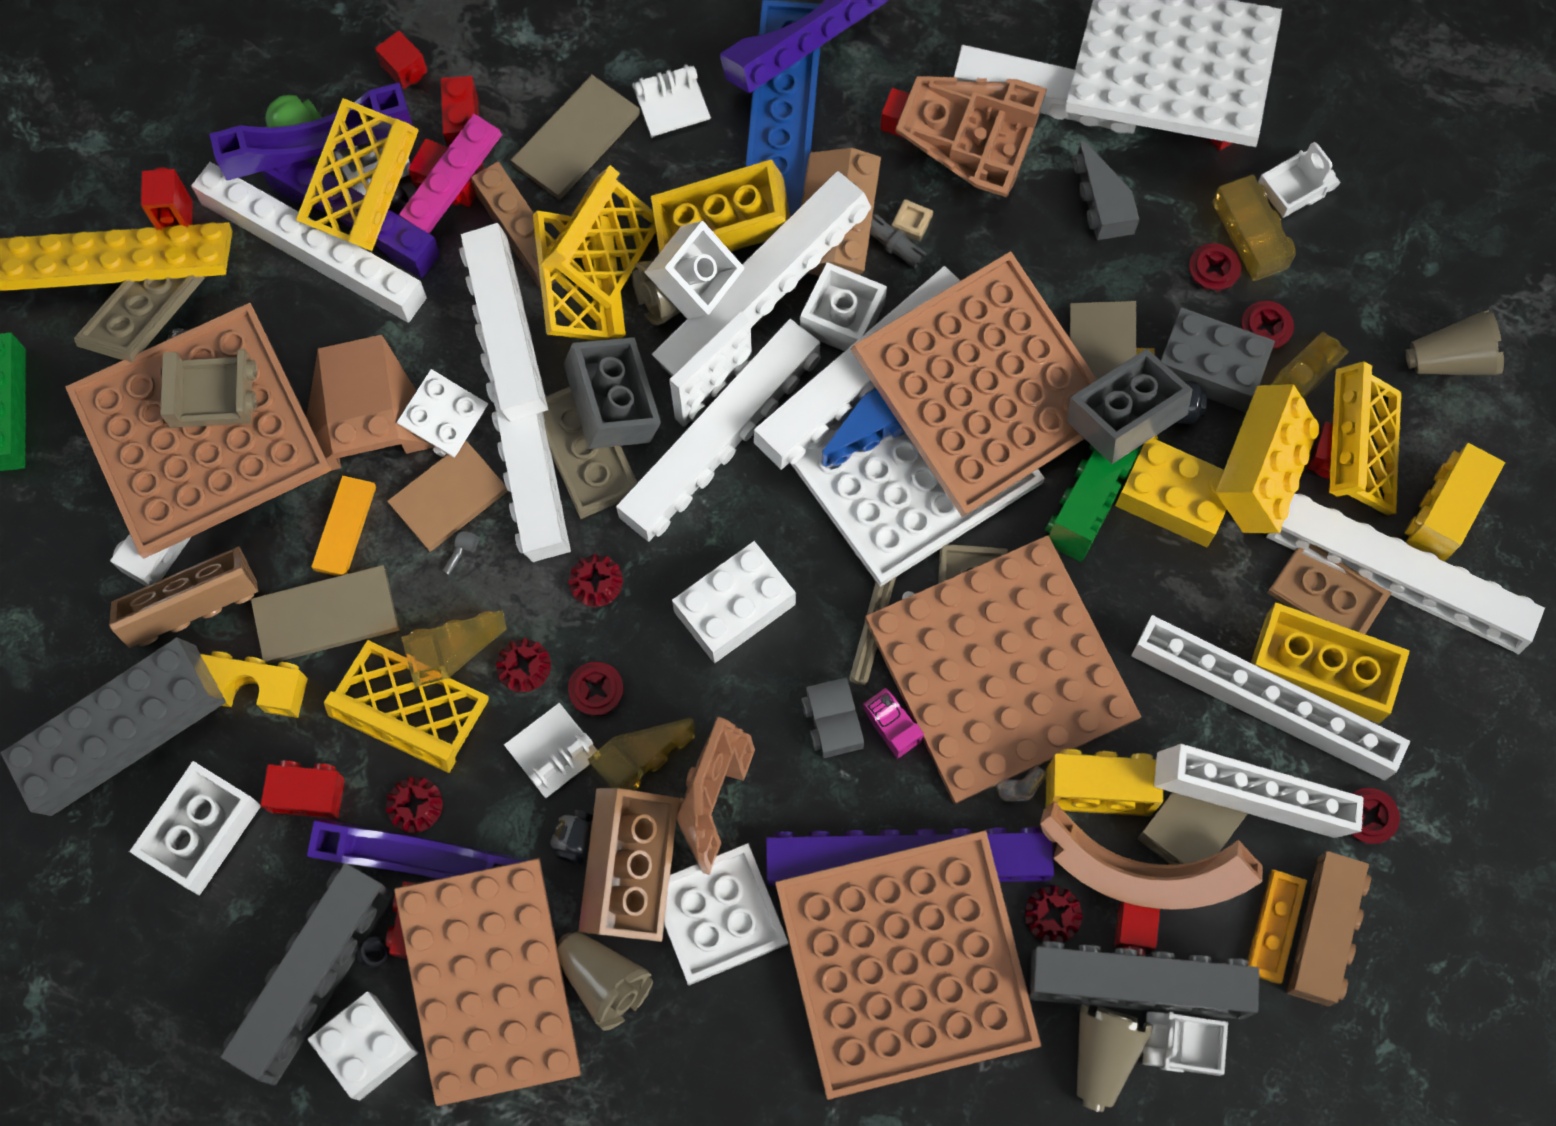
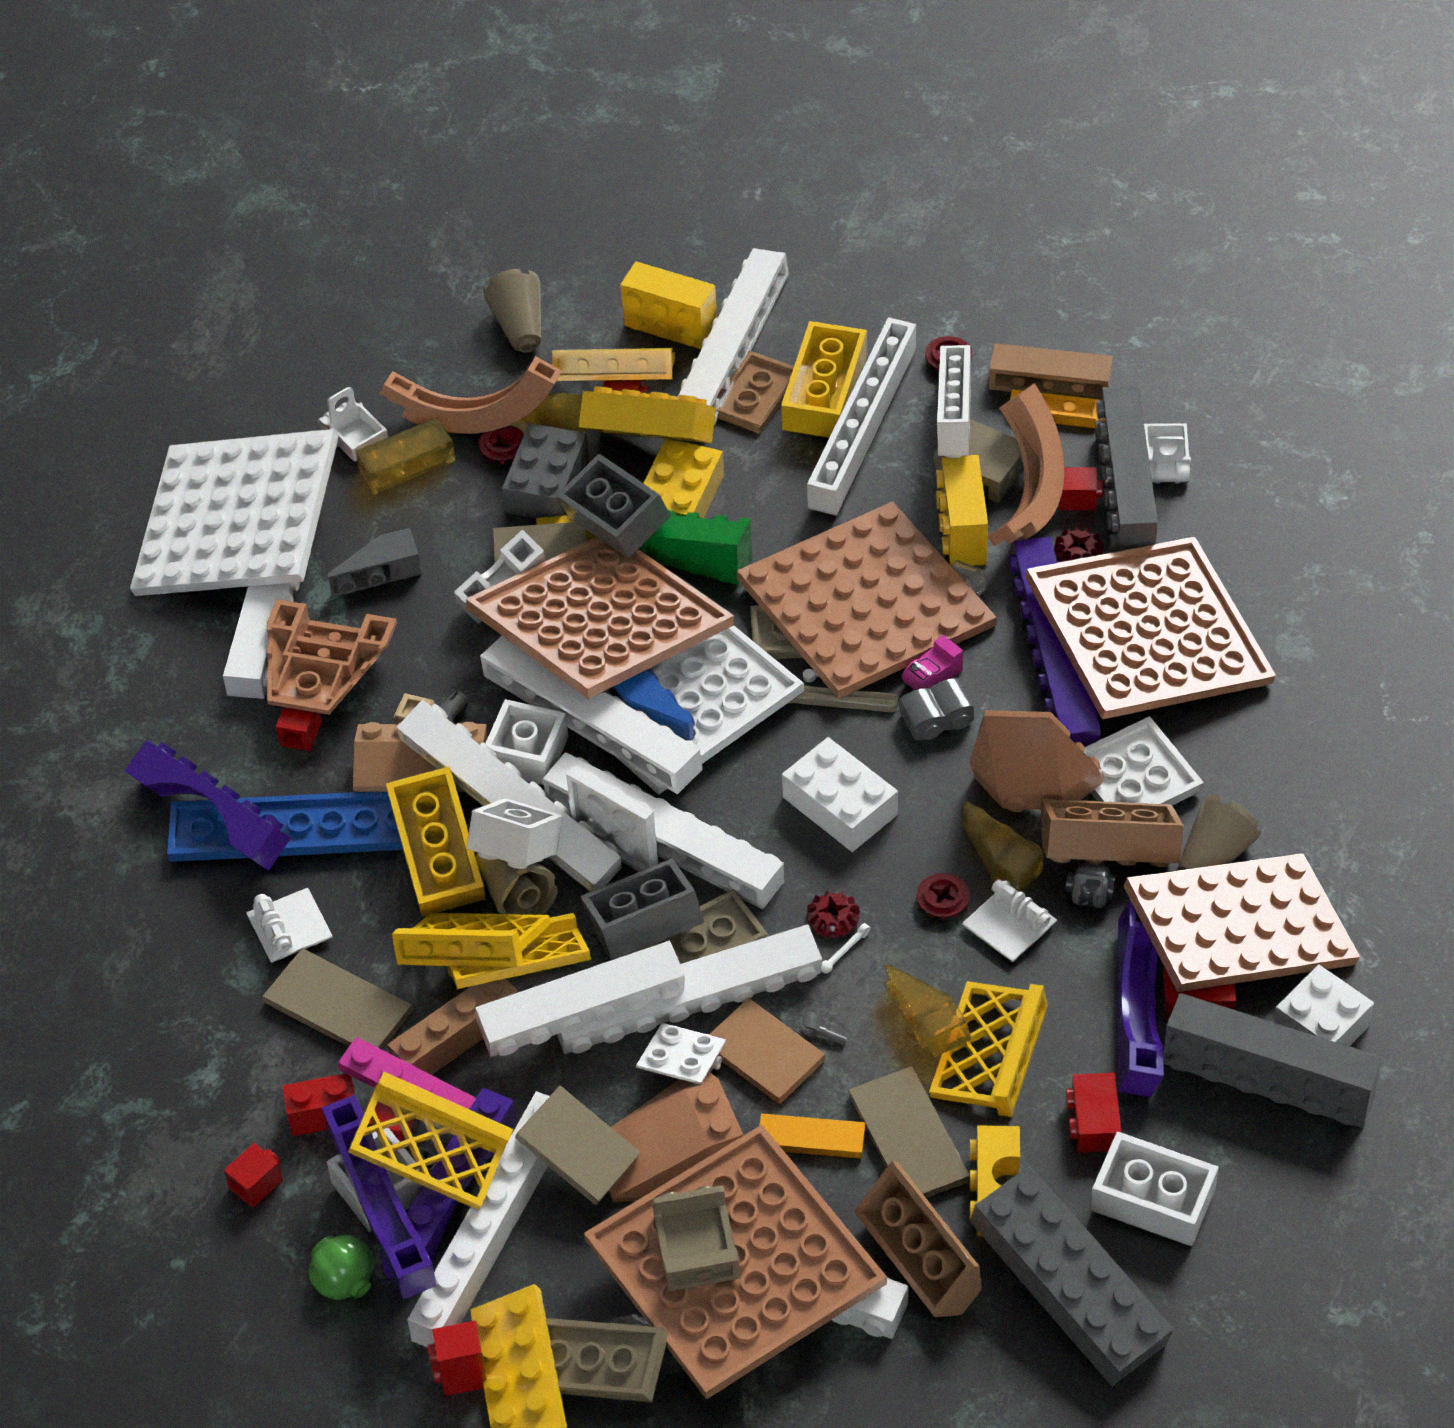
camera: 95 degrees left, 20 degrees down
(352, 309) = (577, 1145): none -> dark tan tile
(426, 813) = (1079, 1035): dark red gear -> none
(517, 679) = (928, 970): dark red gear -> none
(536, 567) = (862, 932): none -> white hinge
(1069, 307) = (515, 557): none -> white arch
(1106, 1054) = (1190, 495): dark tan cone -> none
(1215, 255) = (446, 474): dark red gear -> none
(1308, 281) = (474, 413): none -> nougat arch

